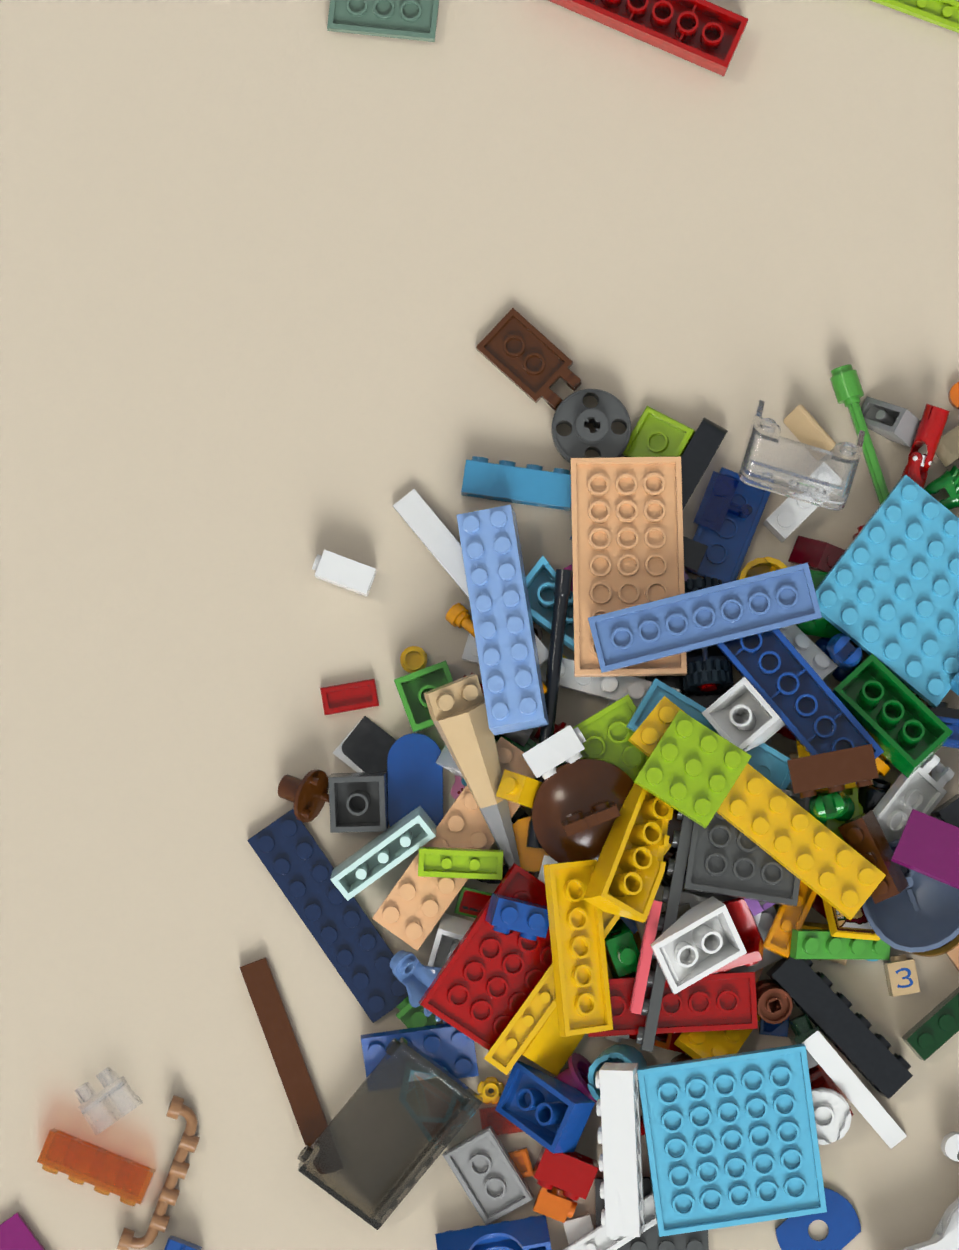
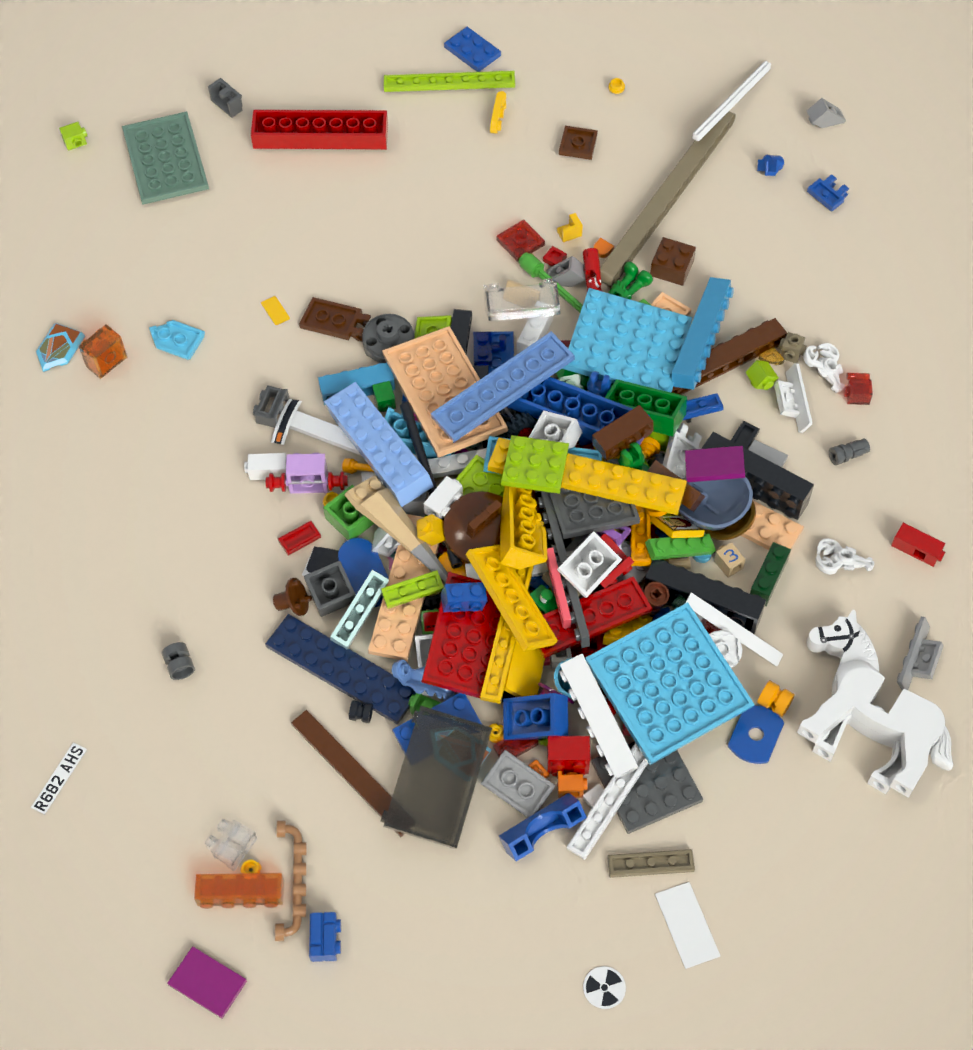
camera: 20 degrees left, 25 degrees down
(113, 1147) = (248, 864): none -> yellow plate
(126, 831) = (178, 661): none -> dark grey wheel
(127, 241) = (58, 346): none -> tile
(183, 287) = (103, 351): none -> clear orange brick
(296, 298) = (177, 338): none -> medium azure tile
(332, 991) = (360, 711): none -> black wheel
(392, 612) = (307, 475): none -> lavender brick
(394, 480) = (265, 418): none -> dark grey window
(398, 503) = (284, 421): none -> sticker
(452, 304) = (275, 310): none -> yellow sticker
(547, 524) = (384, 396): none -> green brick
(850, 332) = (520, 239): none -> clear red plate
(866, 1202) = (776, 698): none -> light orange wheel
(886, 383) = (554, 256): none -> red plate
(918, 80) = (498, 112): none -> yellow plate
(931, 342) = (571, 230): none -> yellow panel

